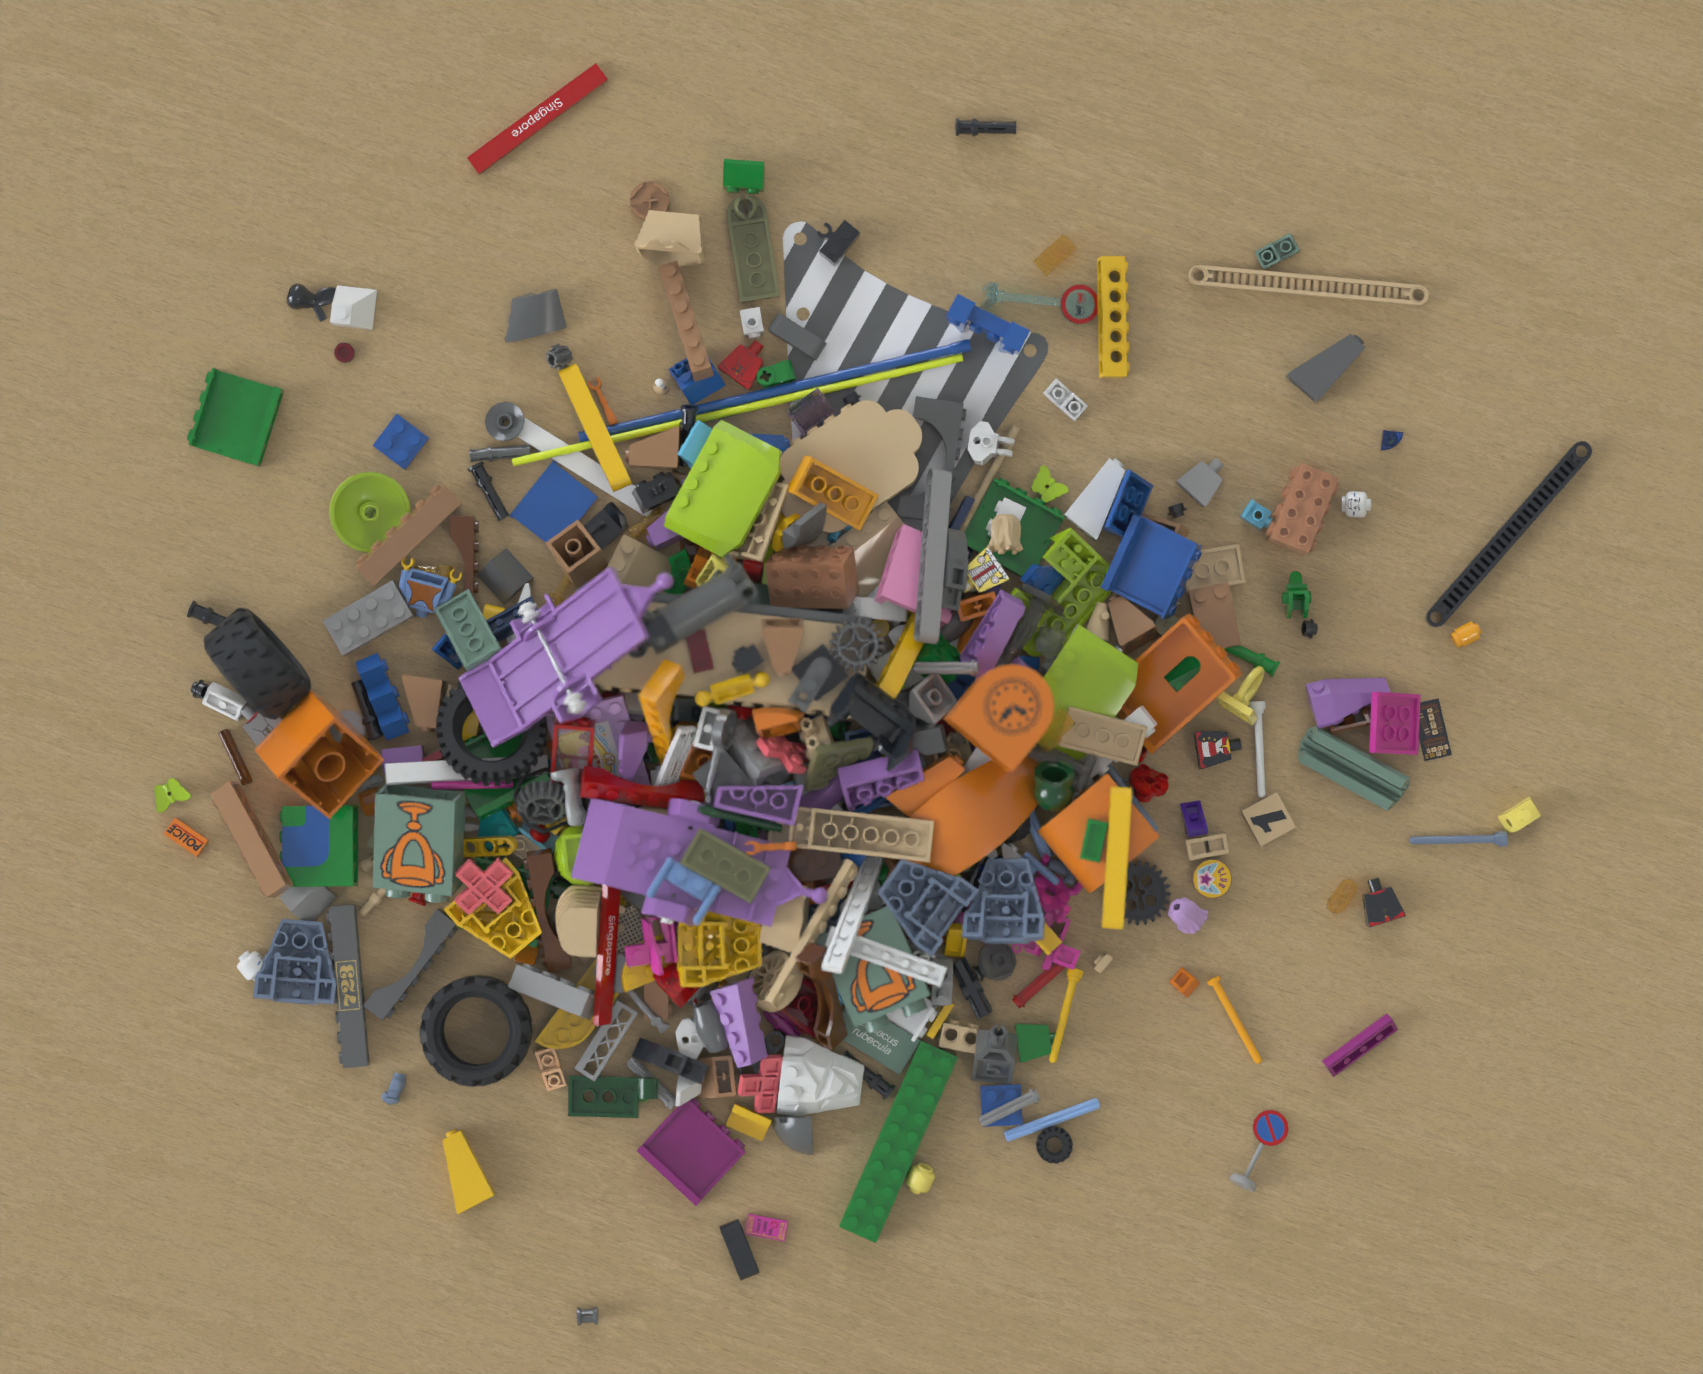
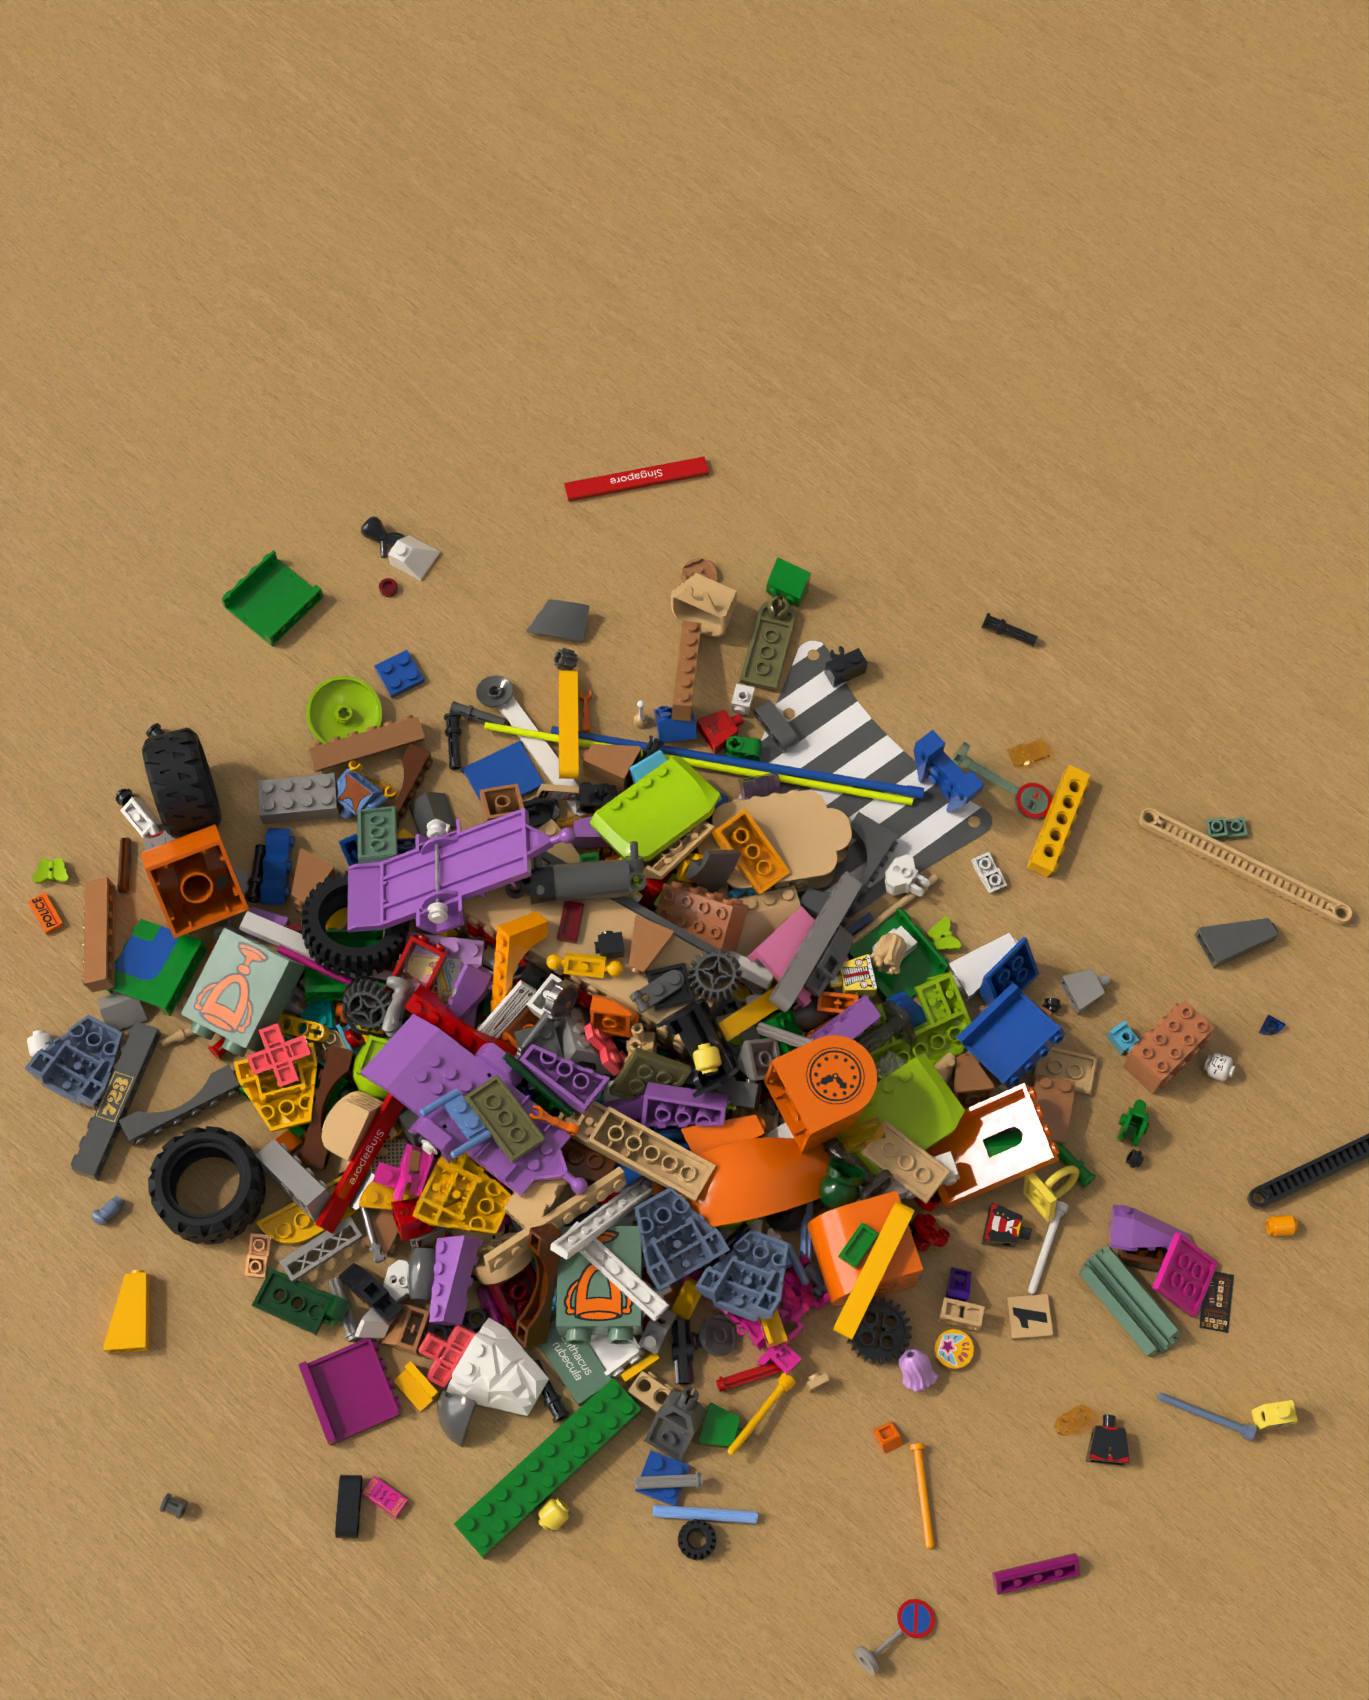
camera: 20 degrees right, 20 degrees down
(617, 504) = (558, 792): none -> tile
(884, 727) = (707, 1058): none -> light yellow head

